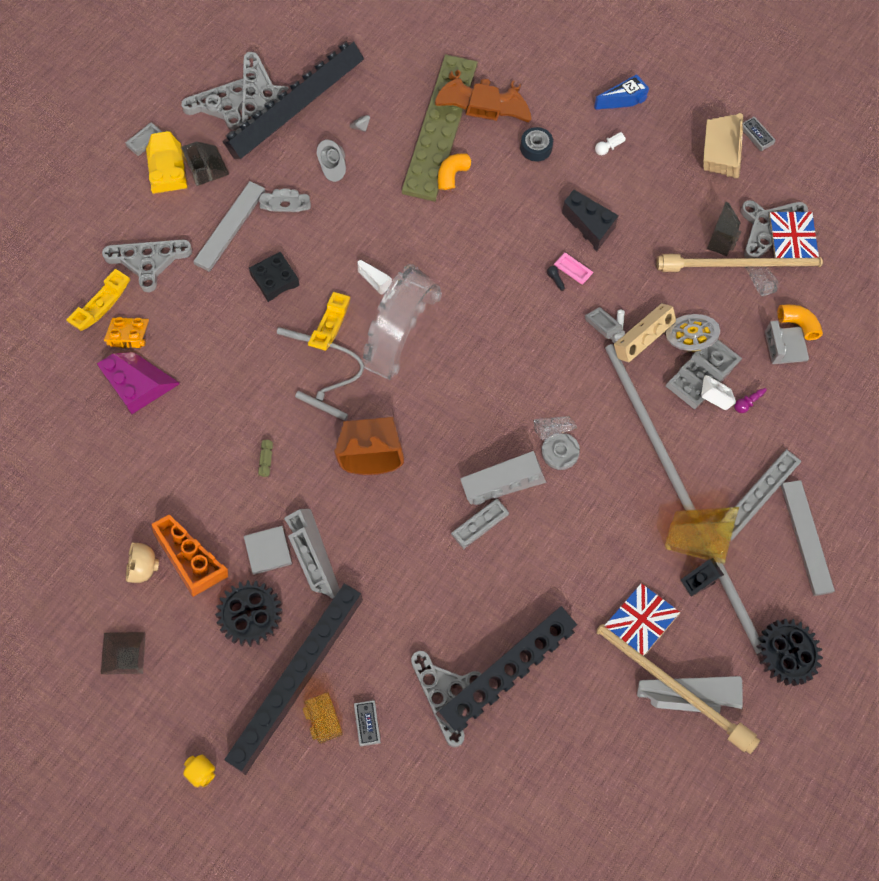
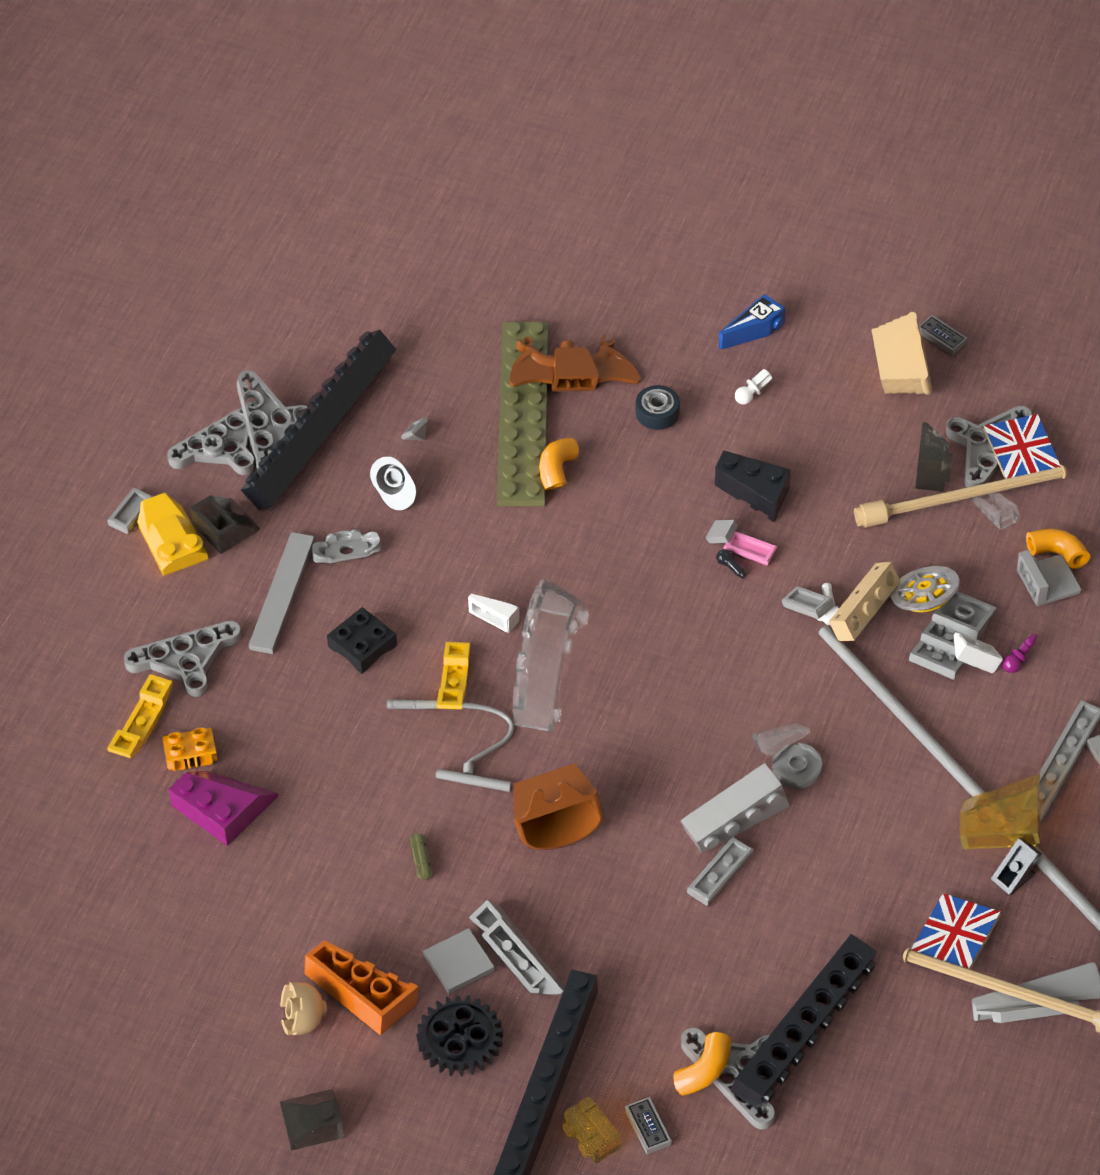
camera: 10 degrees left, 15 degrees down
(423, 691) = (707, 1068): none -> light orange cylinder
(556, 251) = (721, 531): none -> light grey tile

